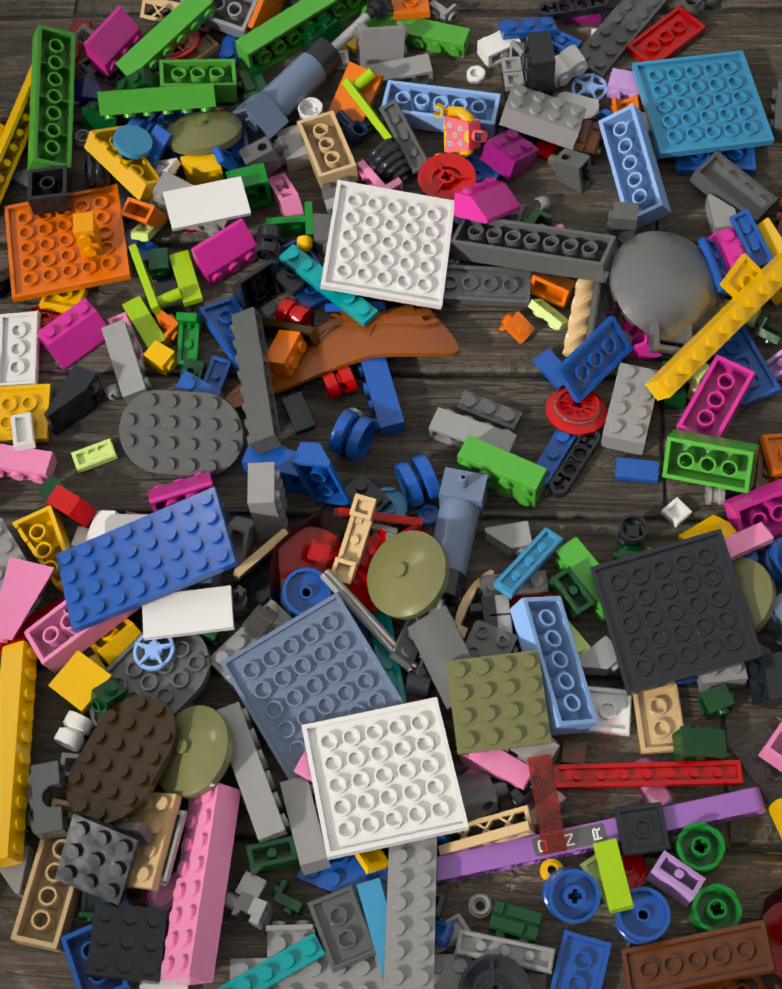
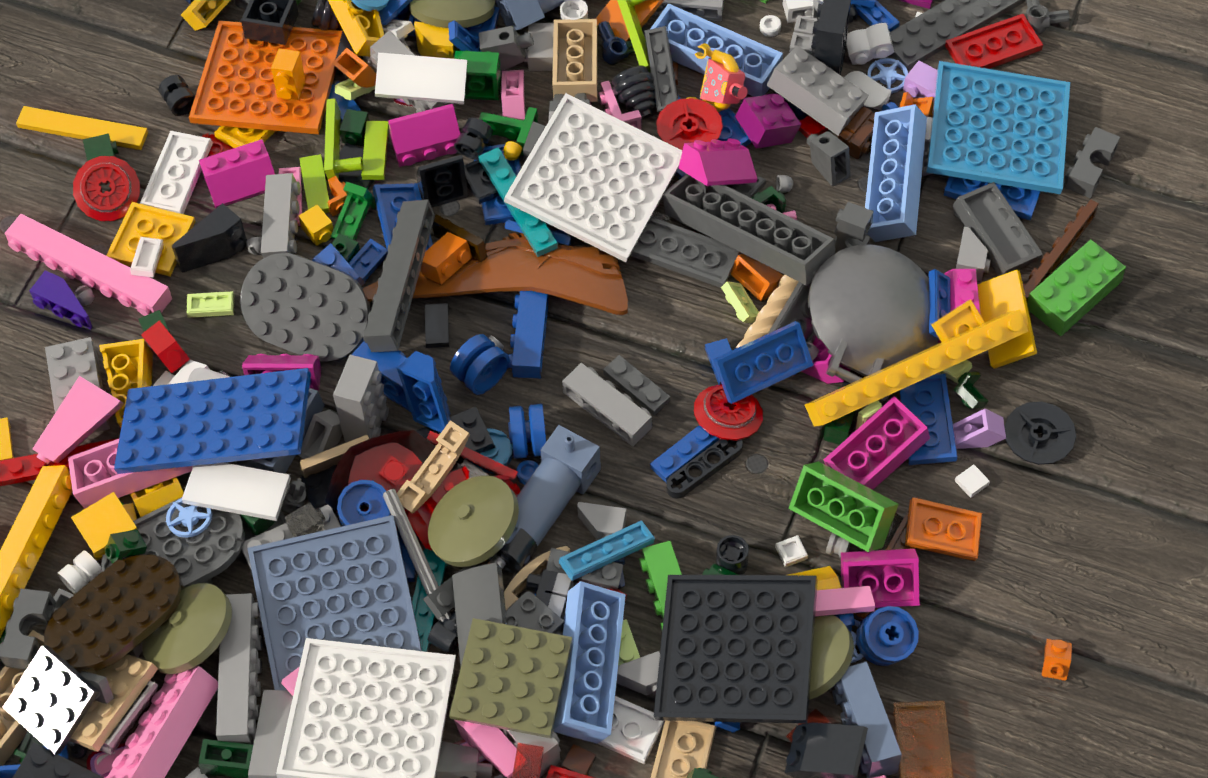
camera: 15 degrees right, 5 degrees down
(291, 311) = (469, 216): red wheel -> none
(339, 383) = (481, 305): red wheel -> none
(506, 472) = (621, 450): bright green brick -> none
(517, 326) = (702, 305): orange bracket -> none
(572, 592) = (639, 596): dark green brick -> none
(629, 410) = (782, 430): light grey brick -> none
(636, 470) = (767, 494): blue tile -> none
(717, 701) = (749, 757): dark green brick -> none
(732, 677) = (766, 735): light grey brick -> none
(751, 238) = (989, 286): blue plate -> none

